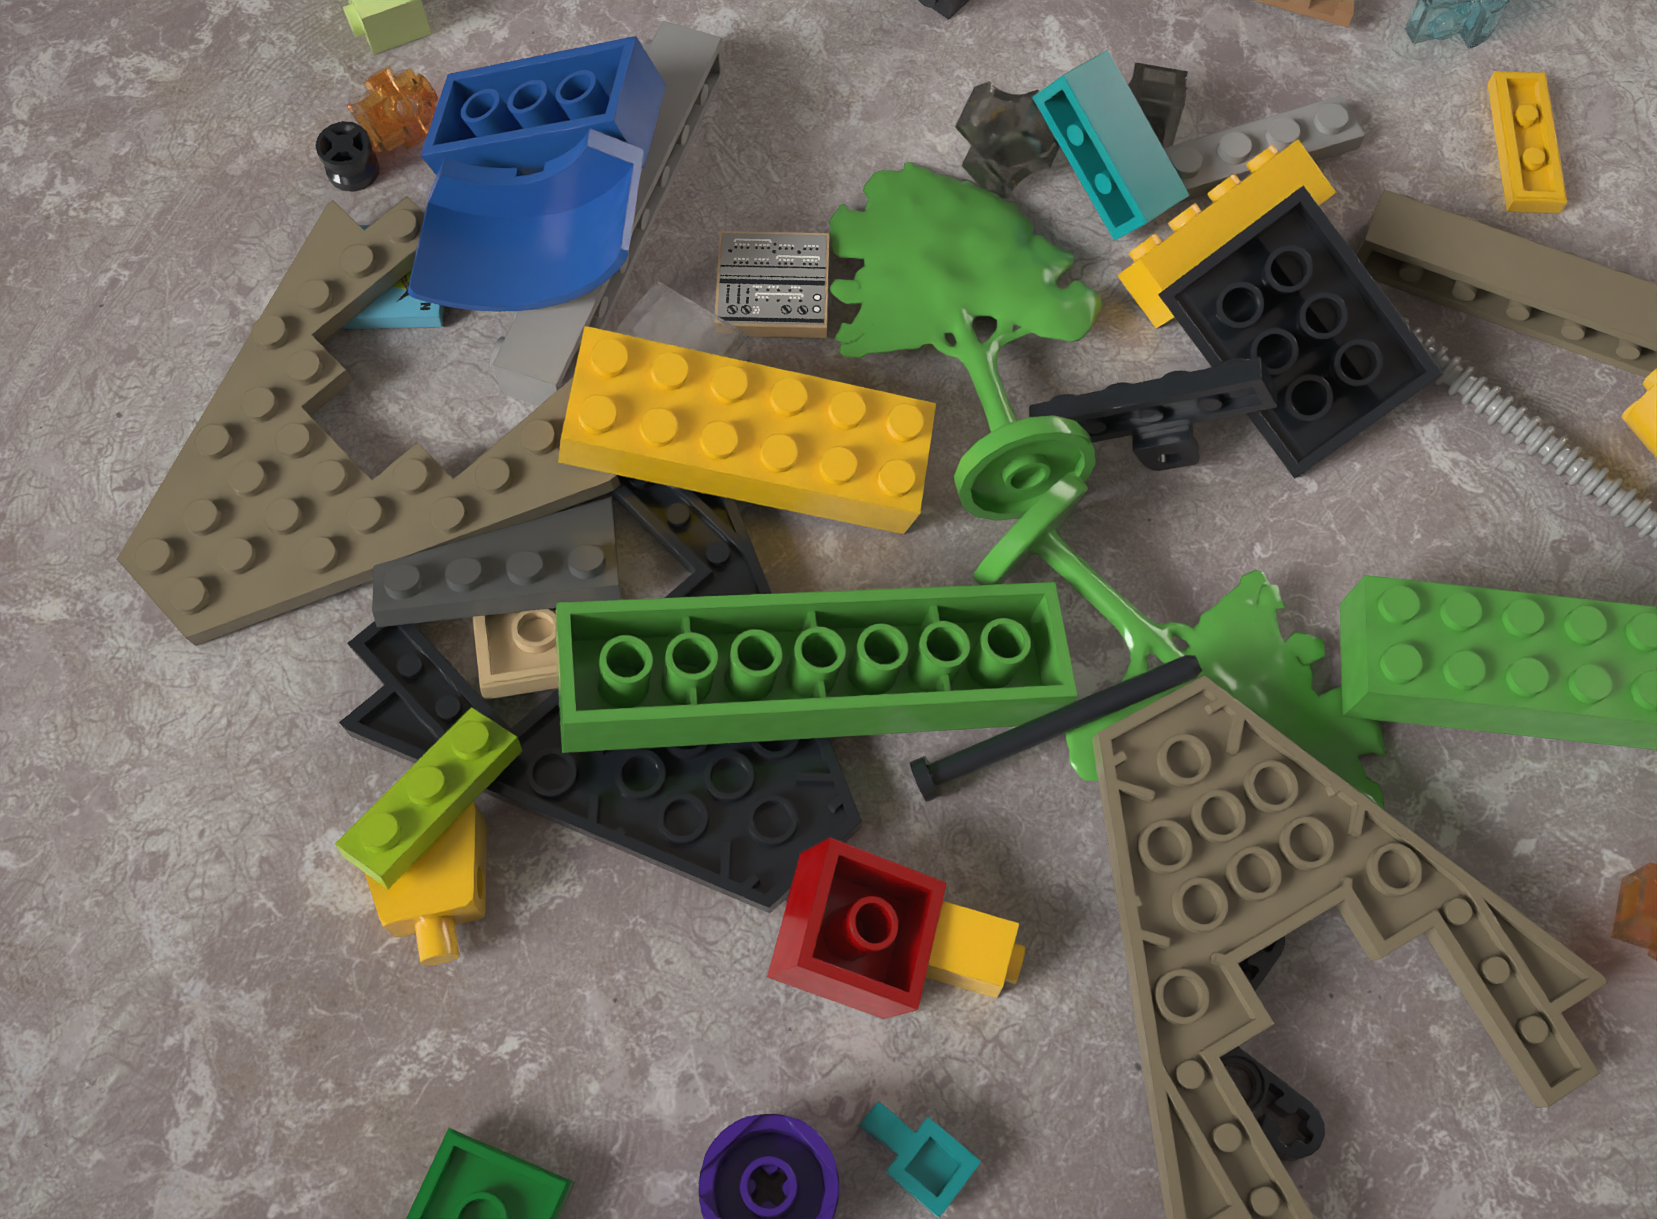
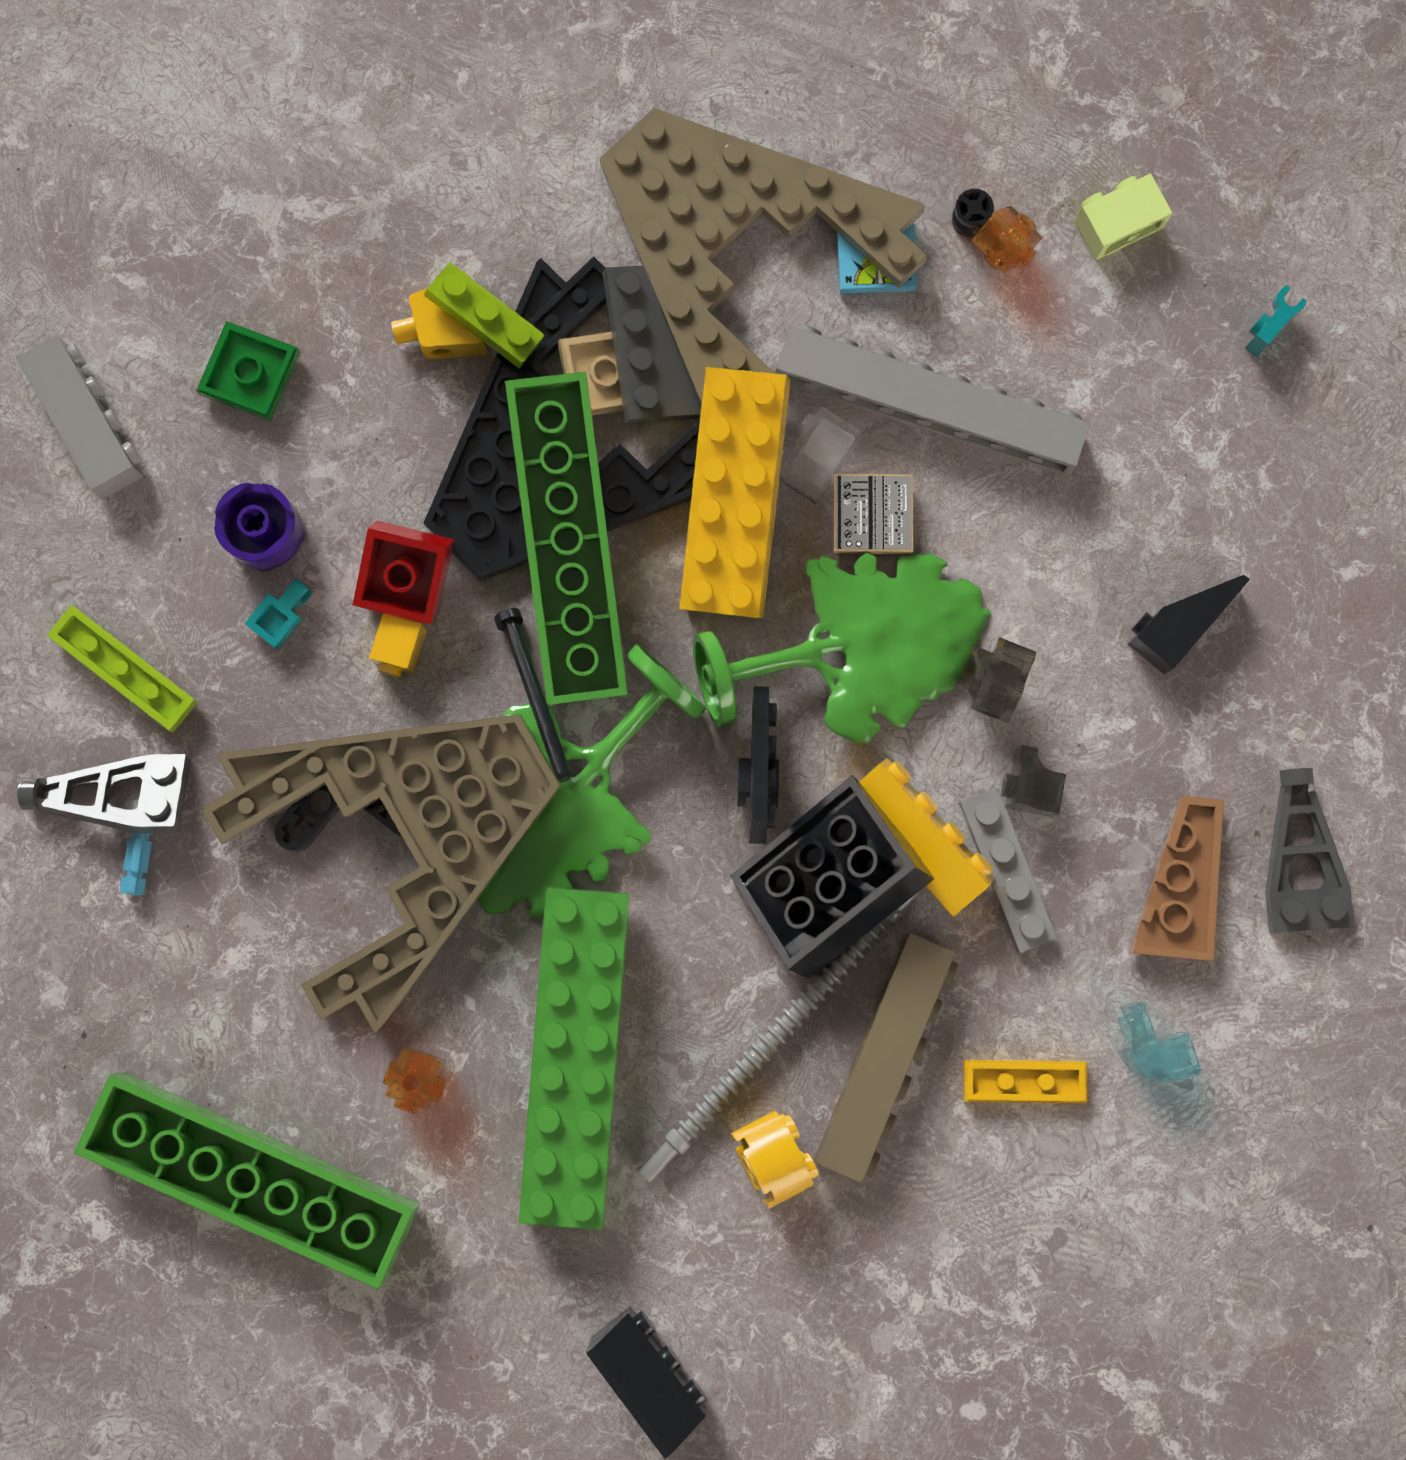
camera: 90 degrees right, 15 degrees up
(530, 238) = (883, 335): blue panel -> none
(545, 106) = (984, 342): blue brick -> none
(1110, 145) = (982, 750): teal brick -> none

